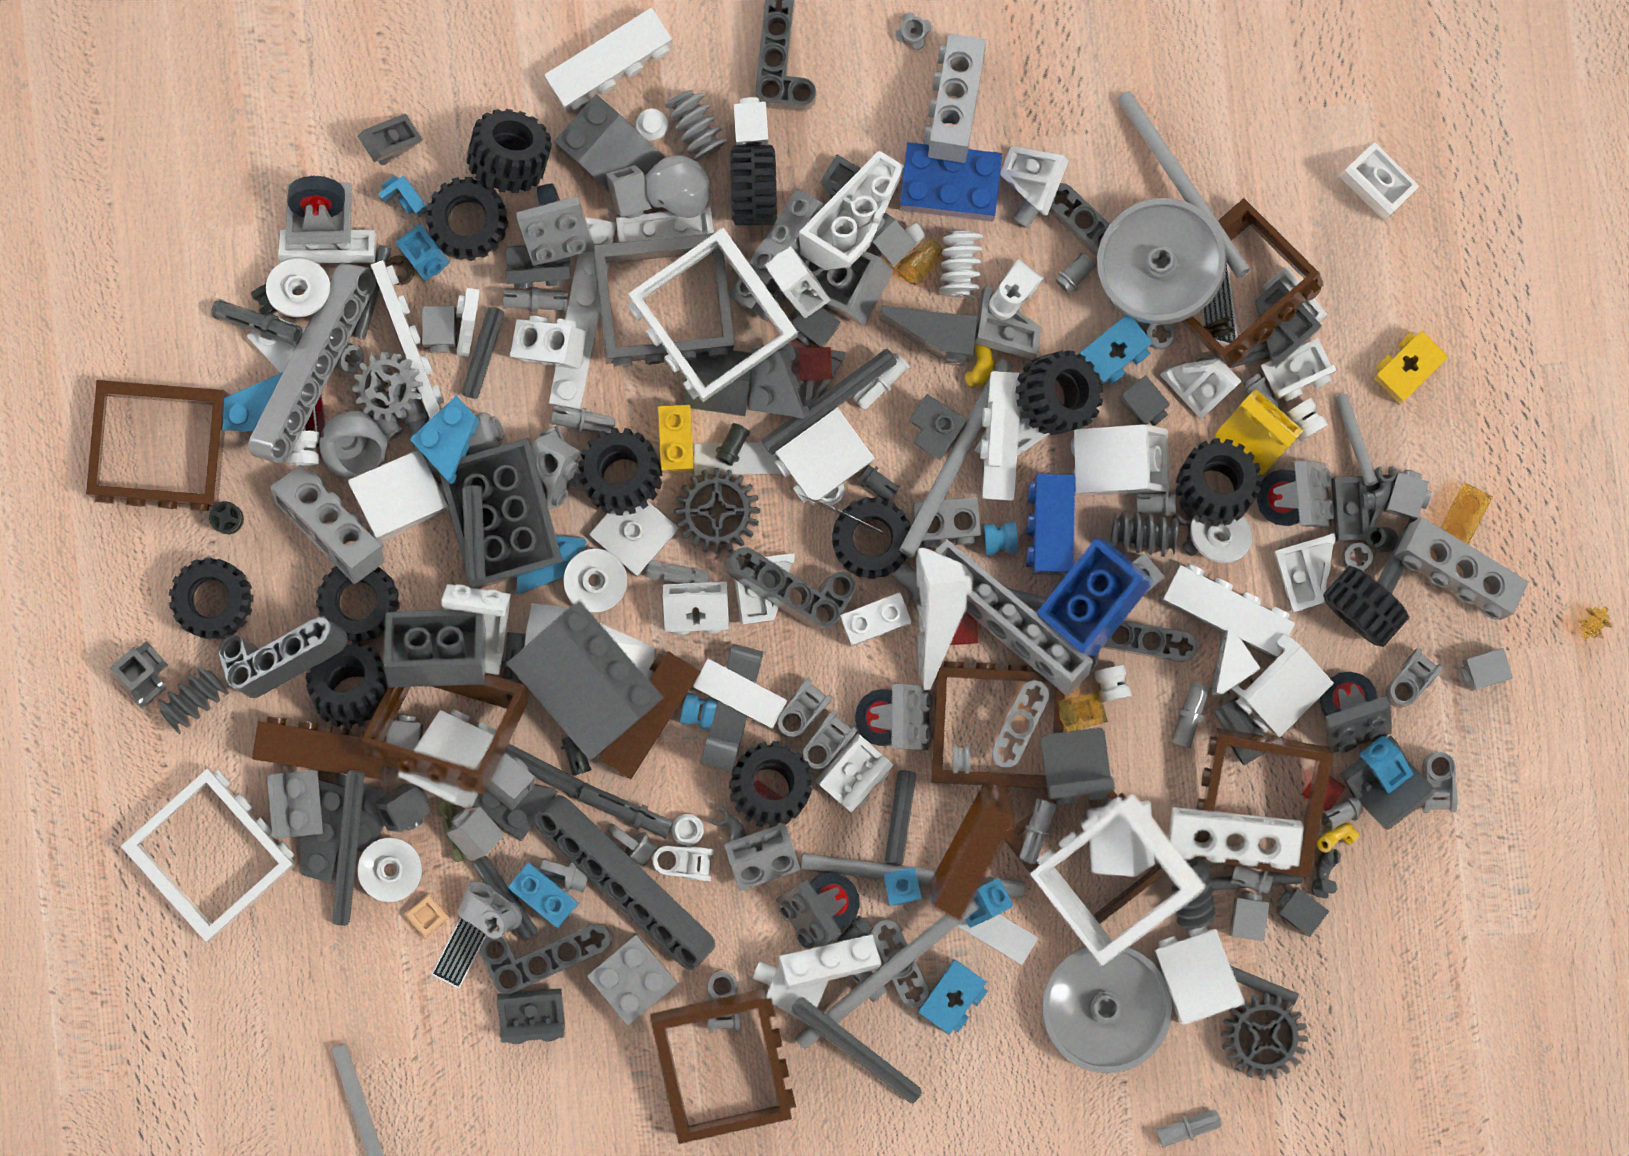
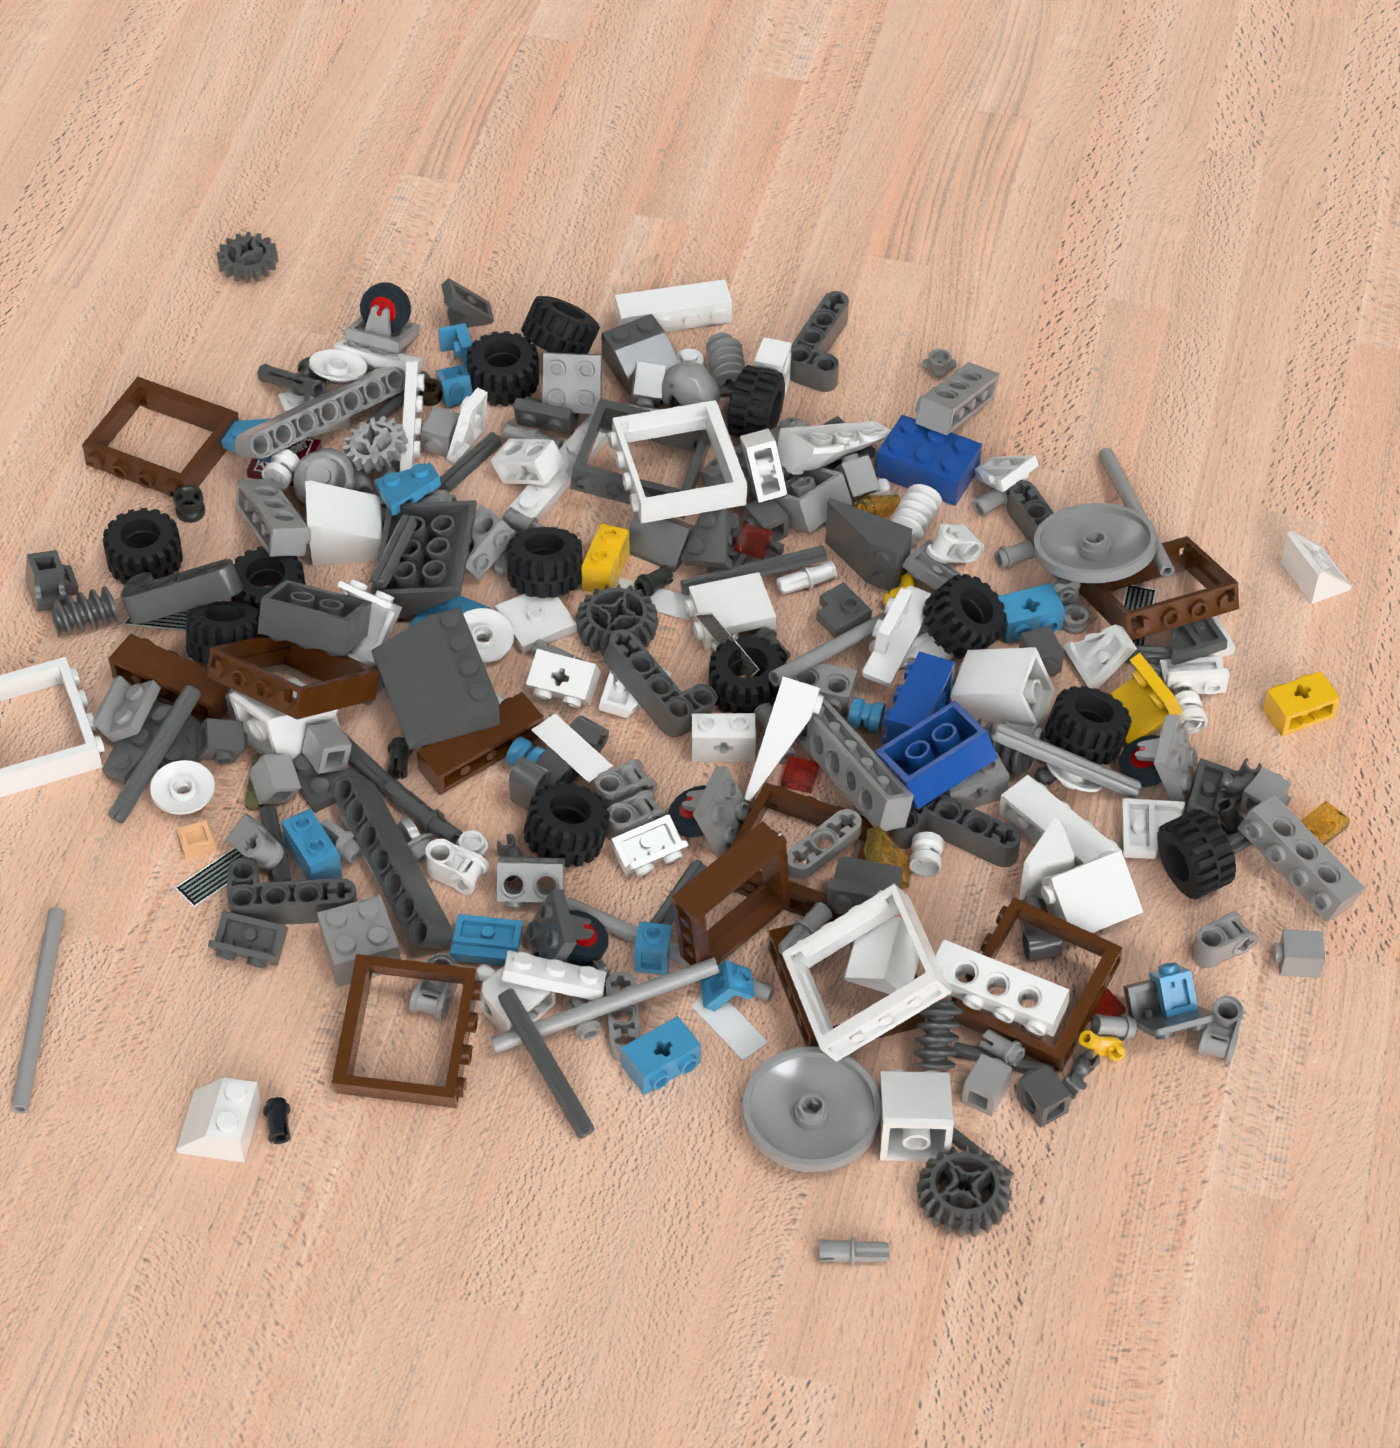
camera: 20 degrees right, 35 degrees down
(109, 153) = (247, 257): none -> dark grey gear
(355, 360) = (344, 428): light grey bush -> none
(746, 931) = (485, 939): none -> dark azure plate
(1190, 714) = (992, 902): light grey pin -> none
(1212, 538) = (1066, 760): none -> light grey axle
(1354, 712) = (1153, 941): dark grey plate -> none
(1356, 439) = (1231, 741): light grey bar -> none

